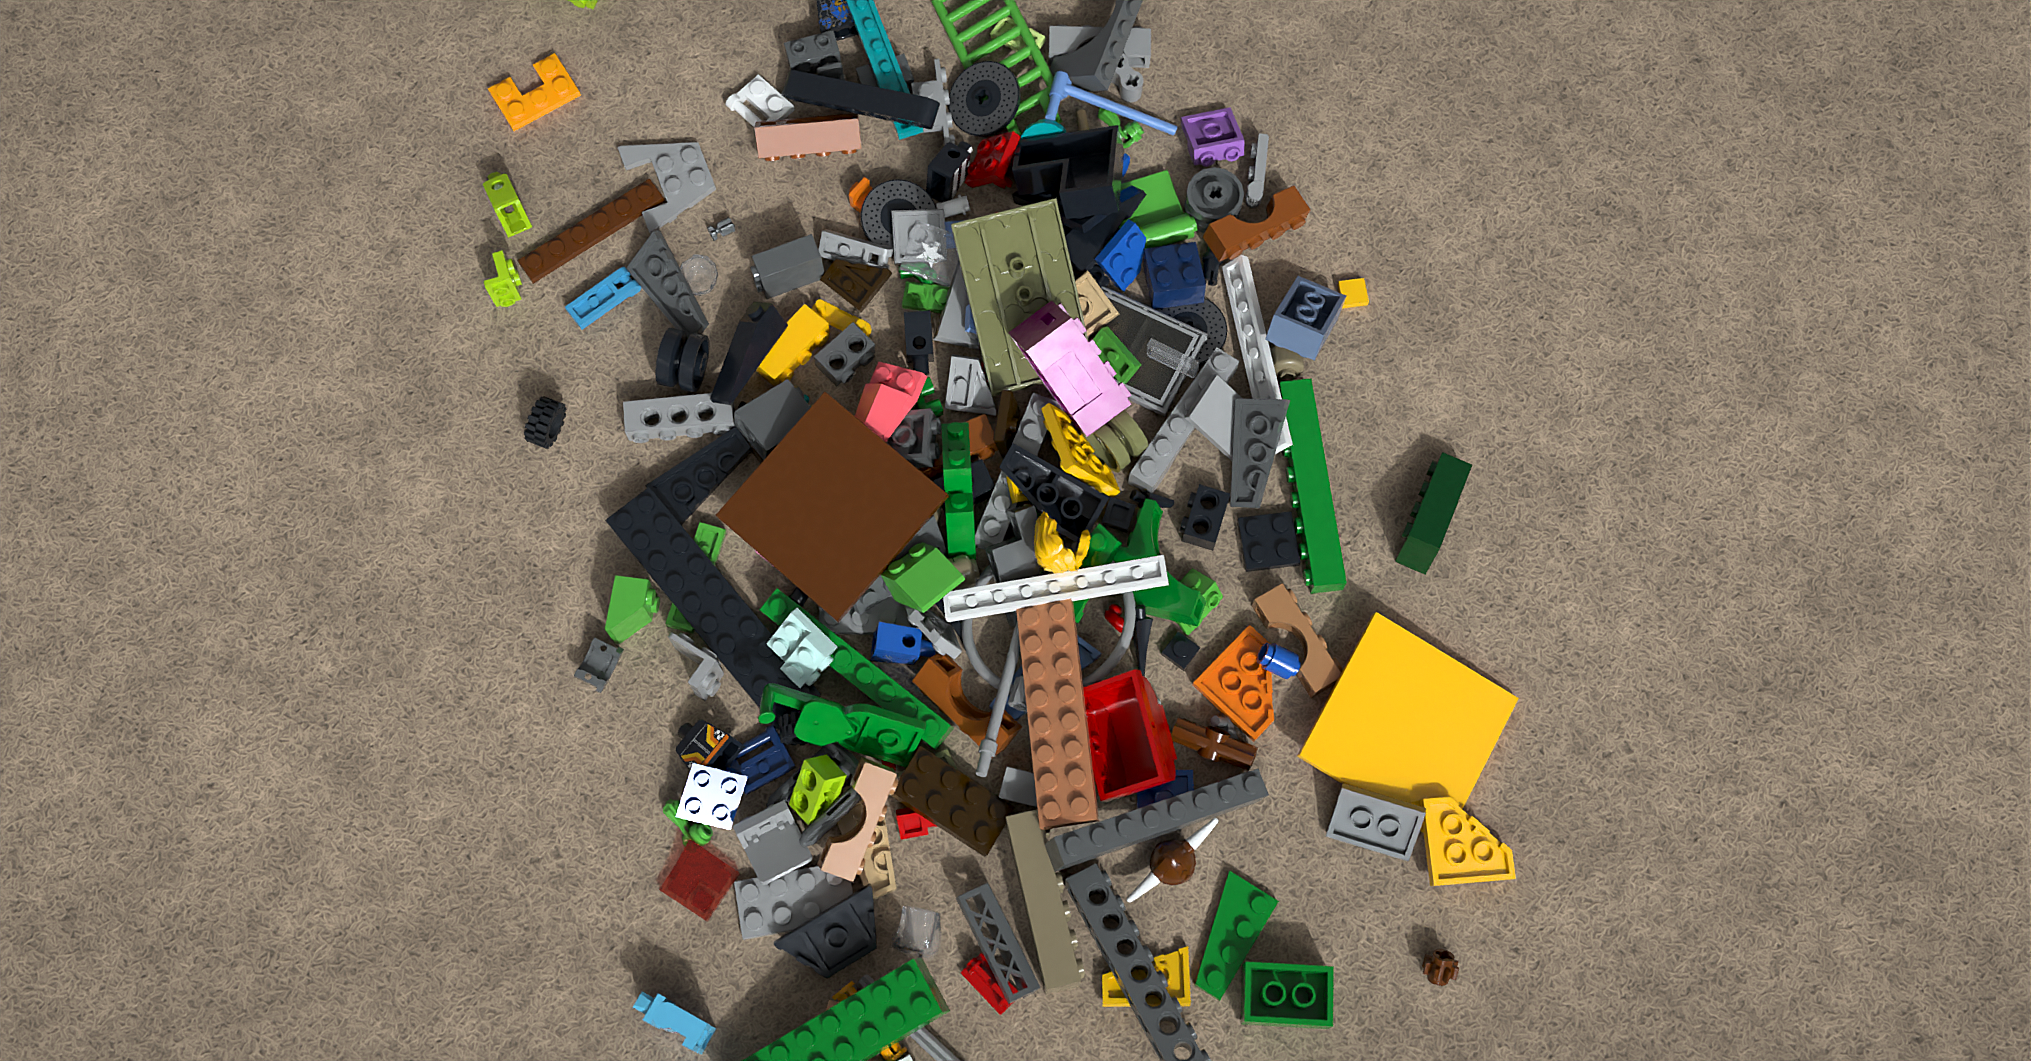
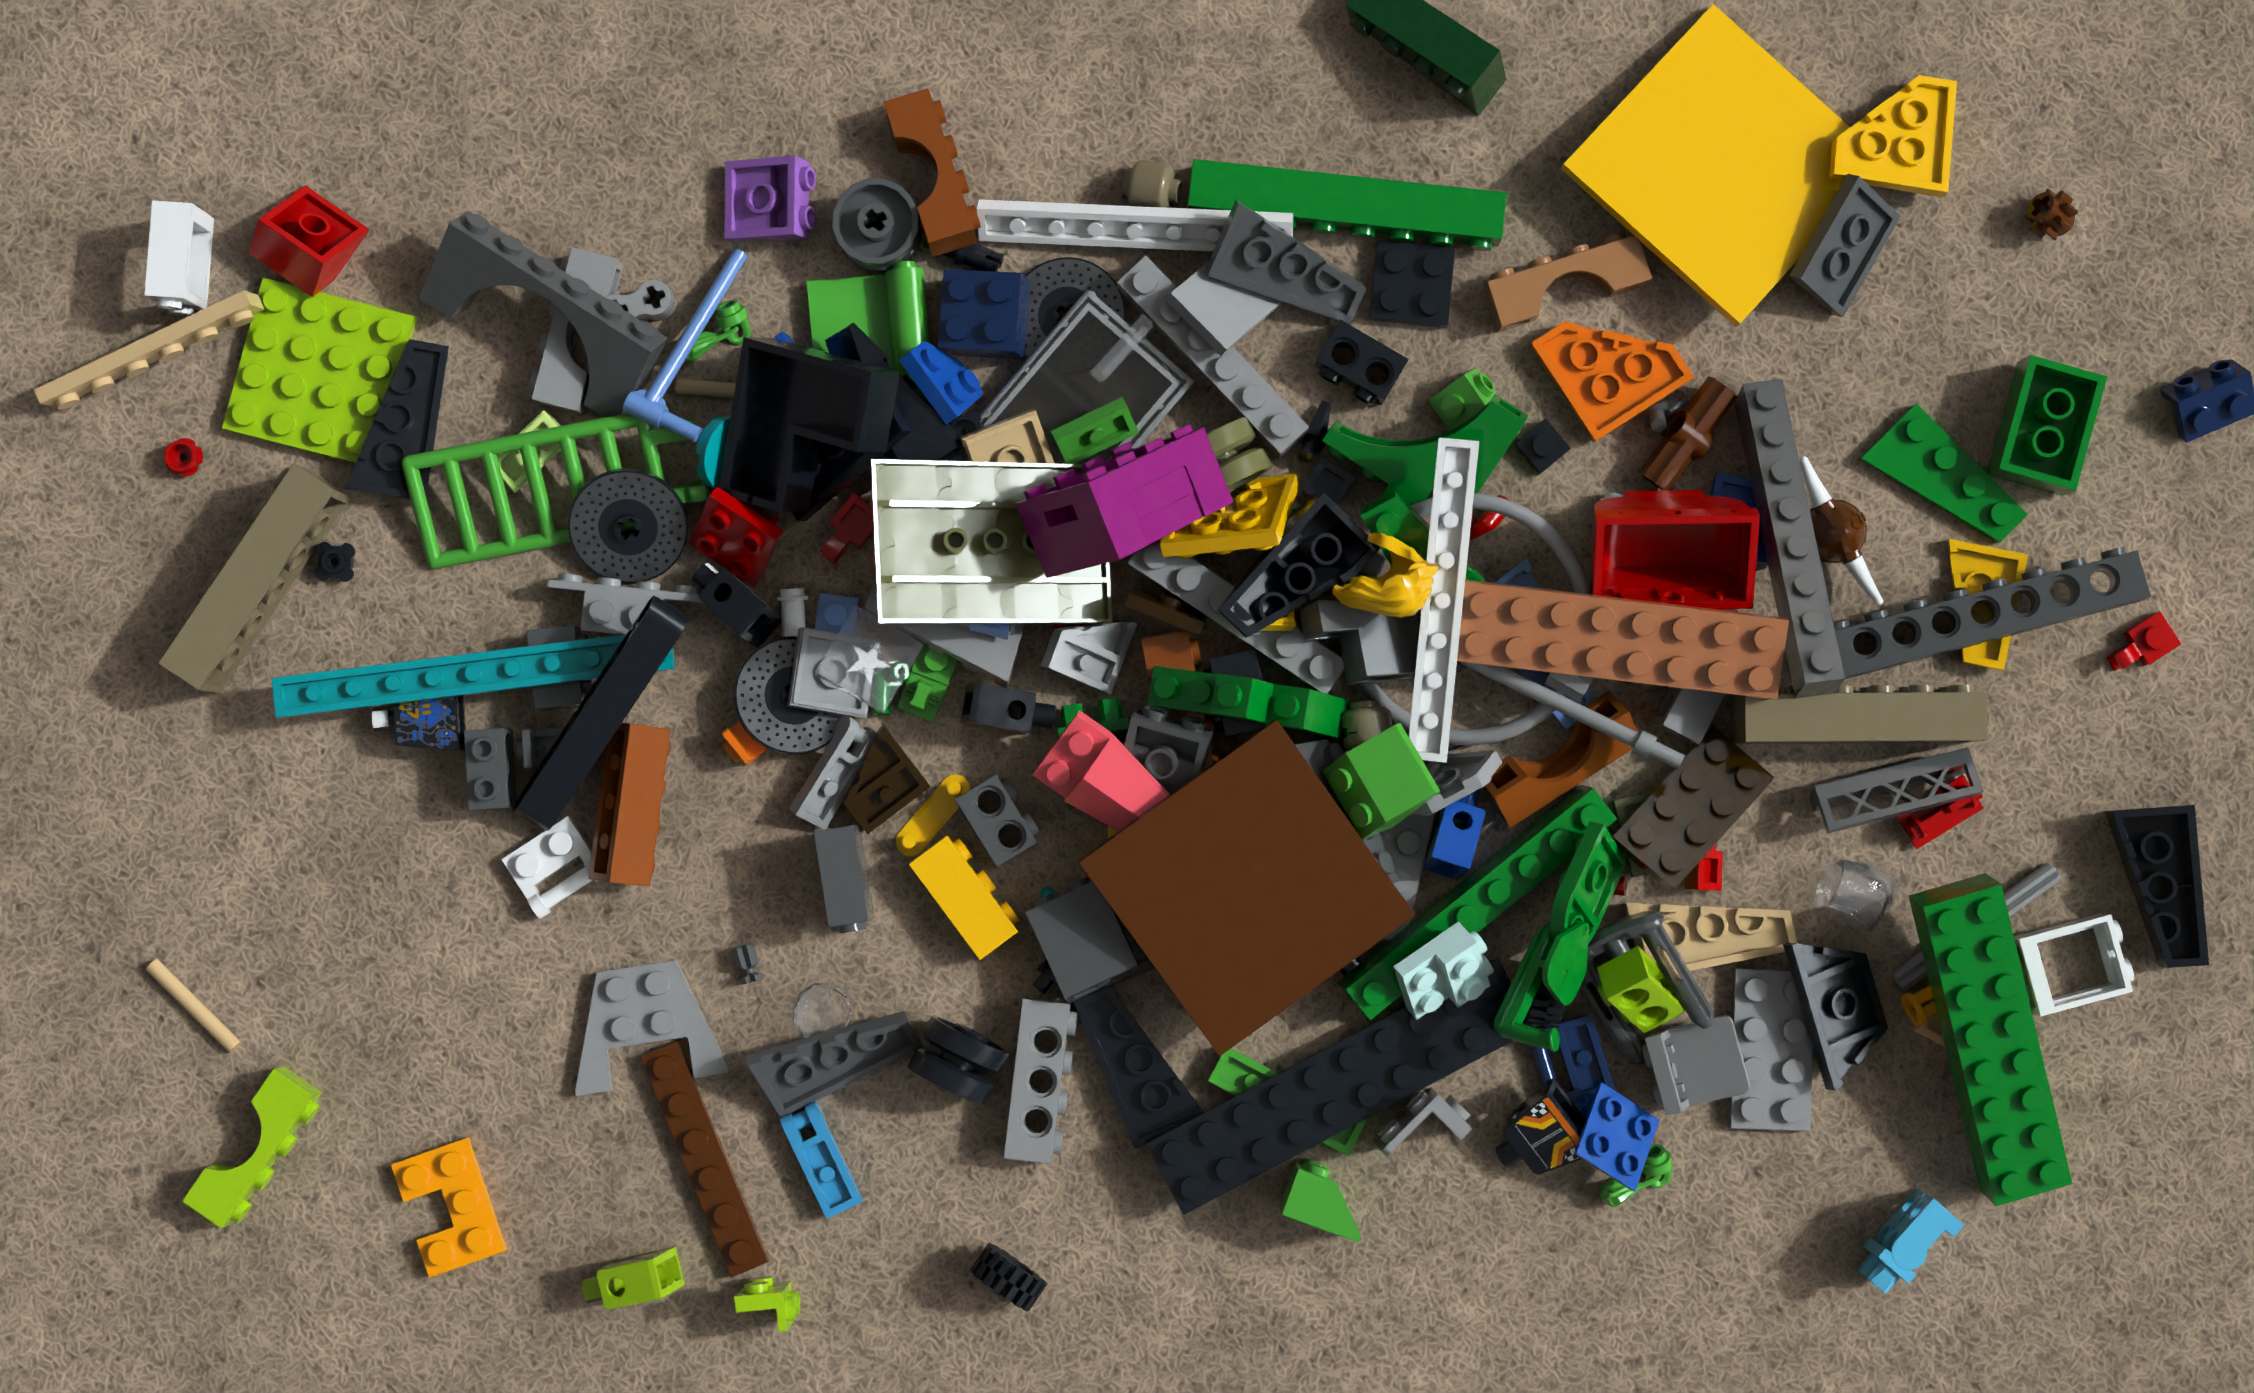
camera: 75 degrees left, 15 degrees up
(599, 664) = (1388, 1261): dark grey piece -> none
(699, 881) = (1719, 1174): clear red plate -> none
(751, 343) = (966, 961): black wedge -> none
(845, 853) = (1737, 969): arch -> none
(1141, 636) = (1517, 492): black piece -> none
(1257, 172) = (842, 148): light grey hinge -> none
(1278, 660) = (1597, 316): blue brick -> none
(1305, 318) = (1103, 141): sand blue brick -> none
(1355, 292) = (1063, 62): yellow tile -> none

